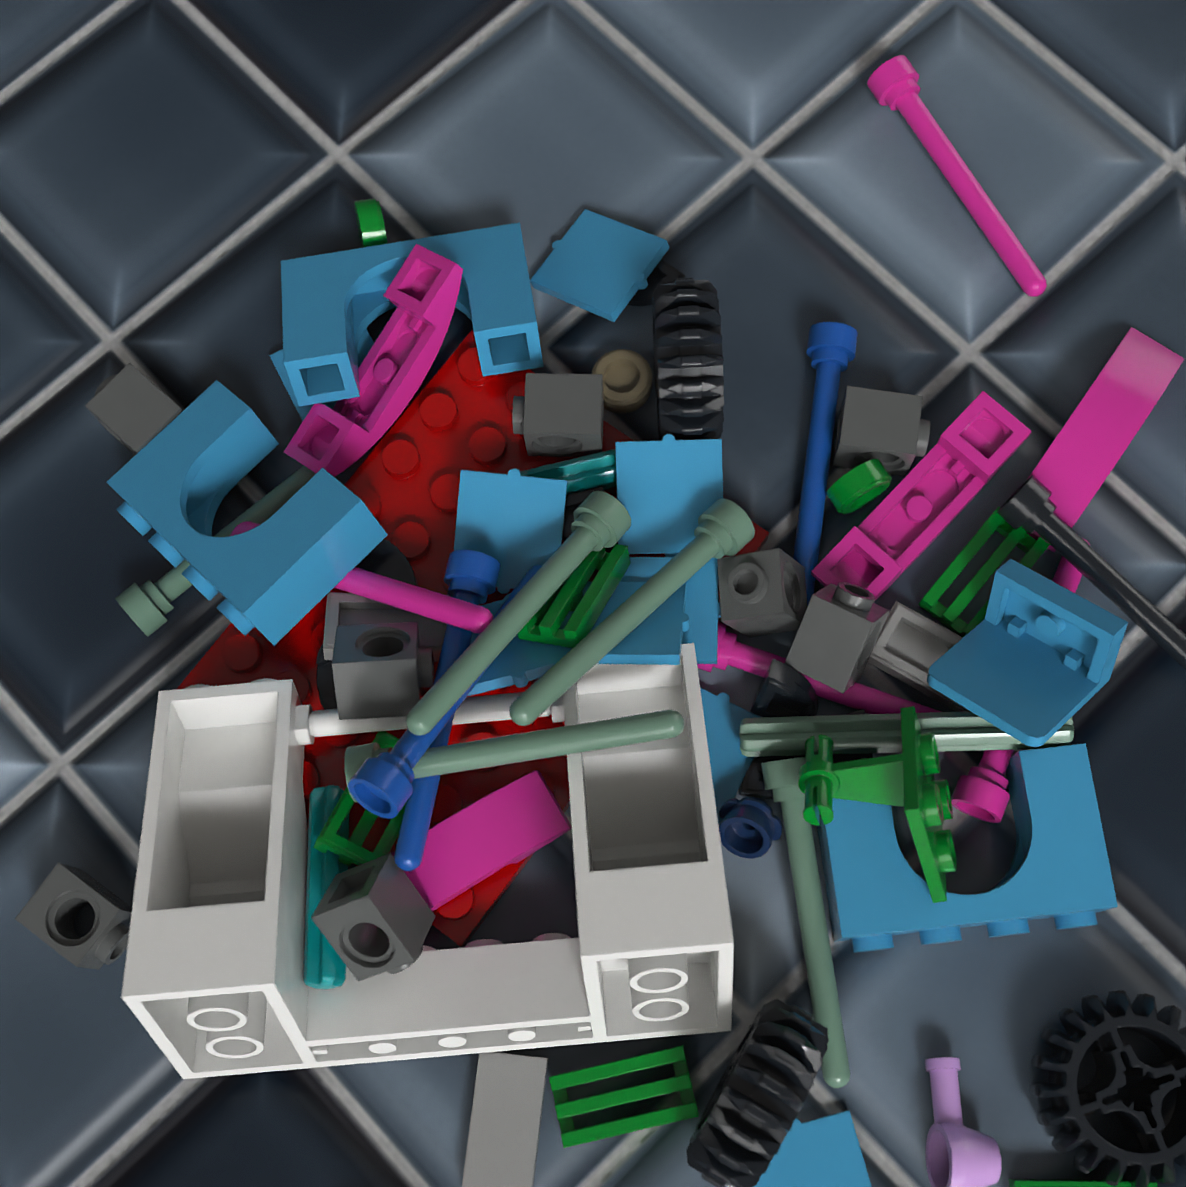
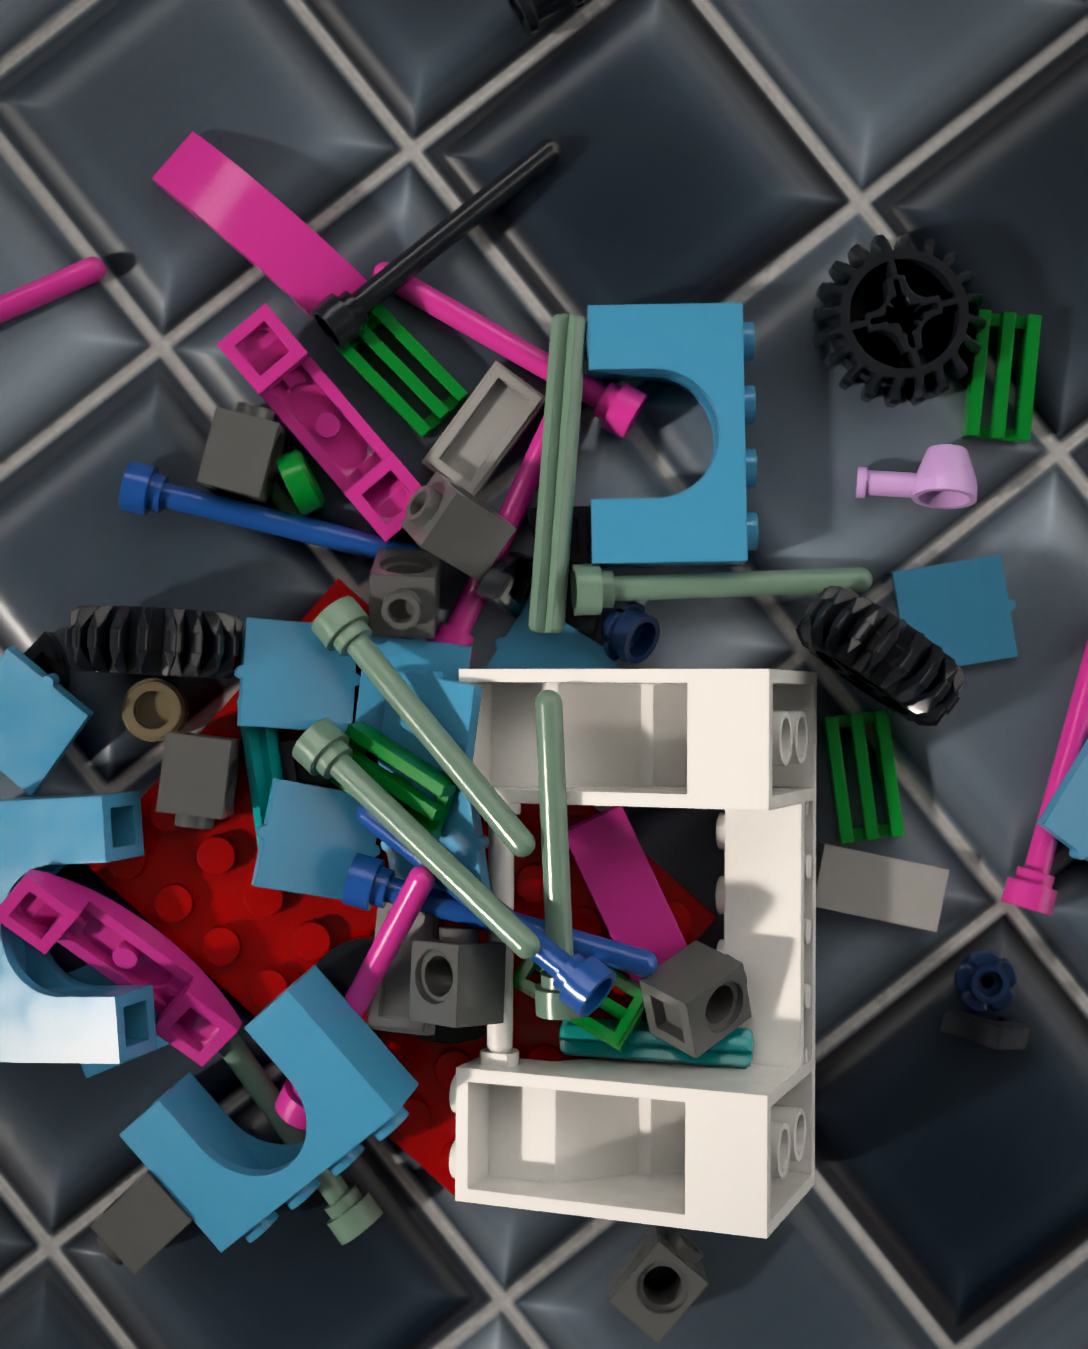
camera: 90 degrees left, 15 degrees up
(889, 780) = (615, 477): green plate -> none
(1031, 656) = (502, 346): dark azure bracket -> none

